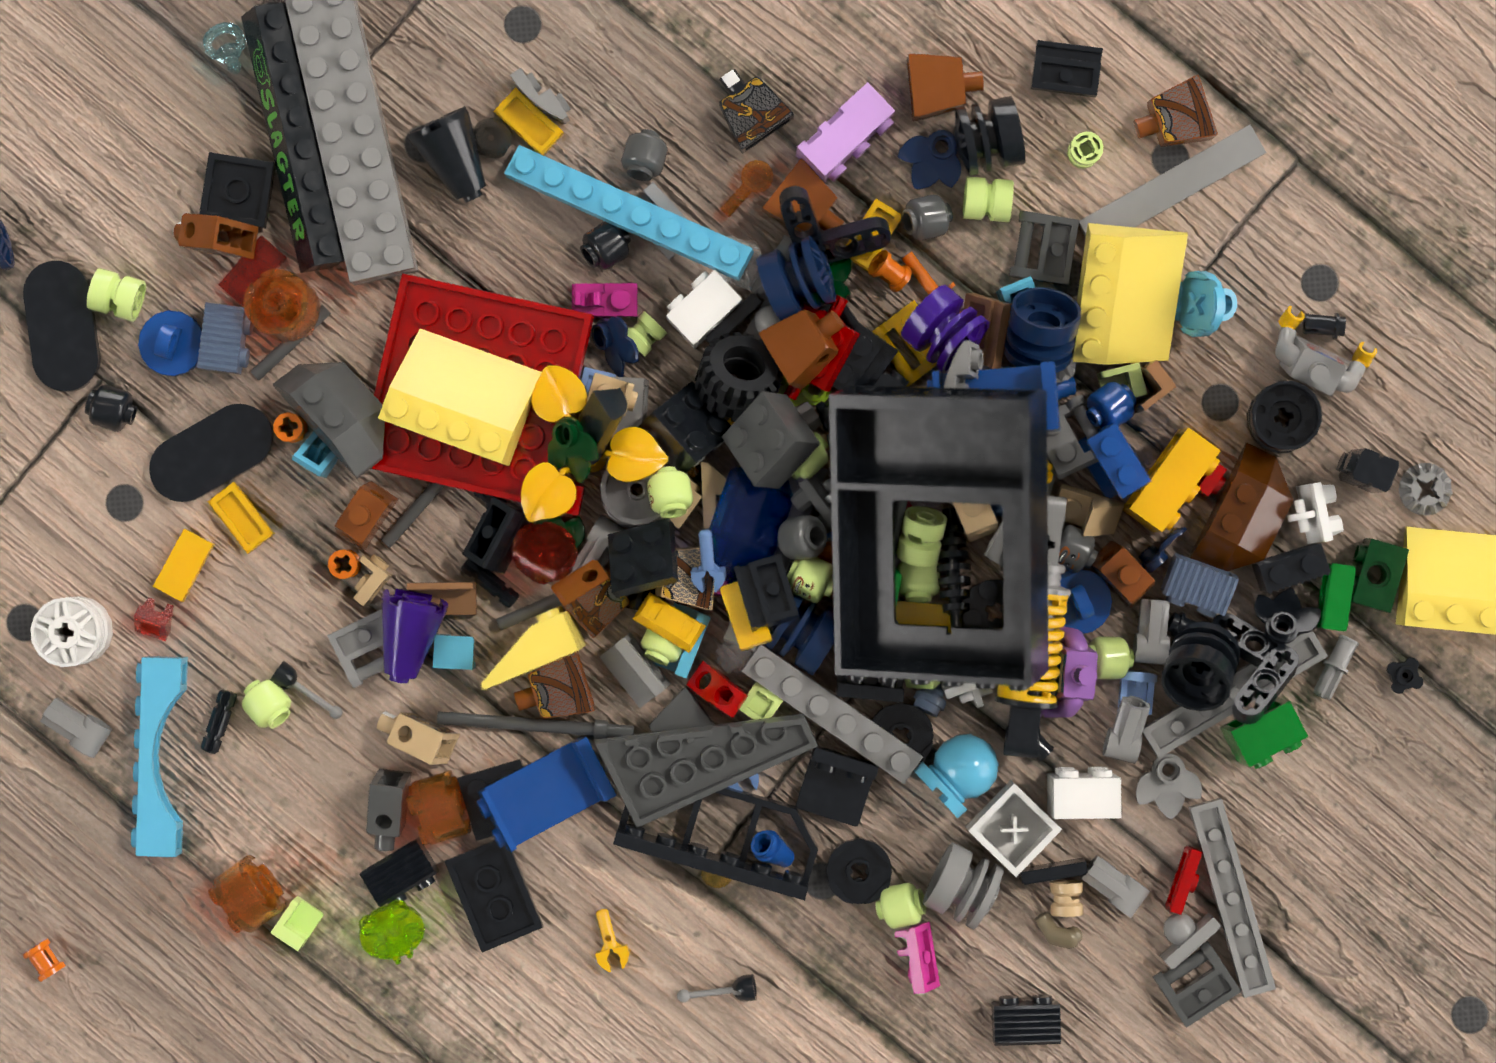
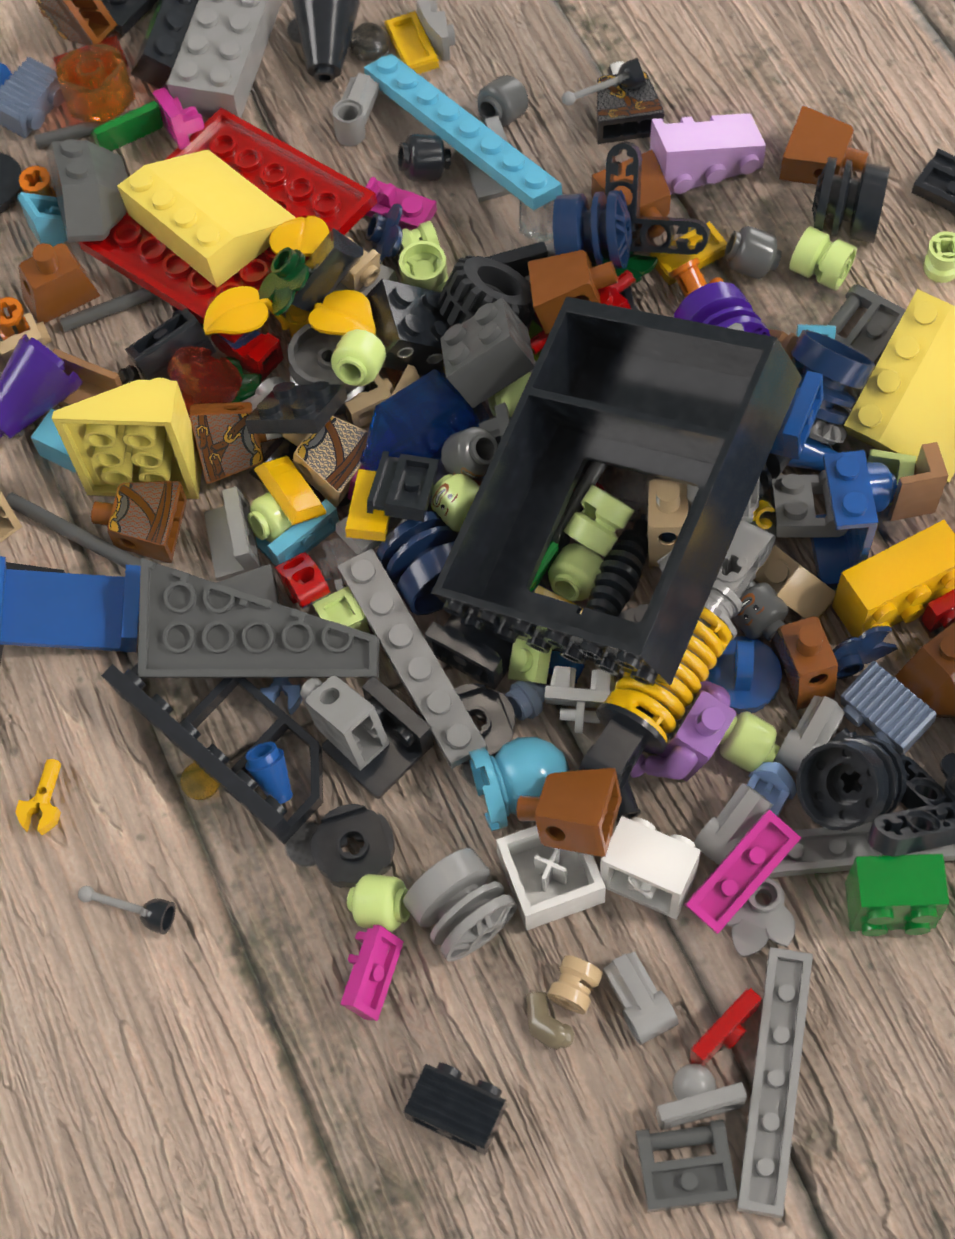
camera: 30 degrees right, 25 degrees down
(327, 328) = (128, 127): none -> green slope
(377, 311) = (176, 120): none -> dark pink plate
(518, 217) = (354, 109): none -> light grey piece
(667, 366) = (423, 266): none -> yellowish green wheel
(702, 308) = (486, 225): white brick -> none
(707, 564) = (357, 439): medium blue bar -> none
(749, 94) = (629, 75): none -> hinge
(756, 178) = (593, 162): clear orange plate -> none
(820, 792) = (345, 719): none -> light grey torso
(929, 163) = (780, 213): dark blue plate -> none
(1019, 791) = (575, 810): none -> dark orange torso
(1053, 871) = (566, 942): black tile -> none
(1150, 766) = (742, 871): none -> dark pink plate

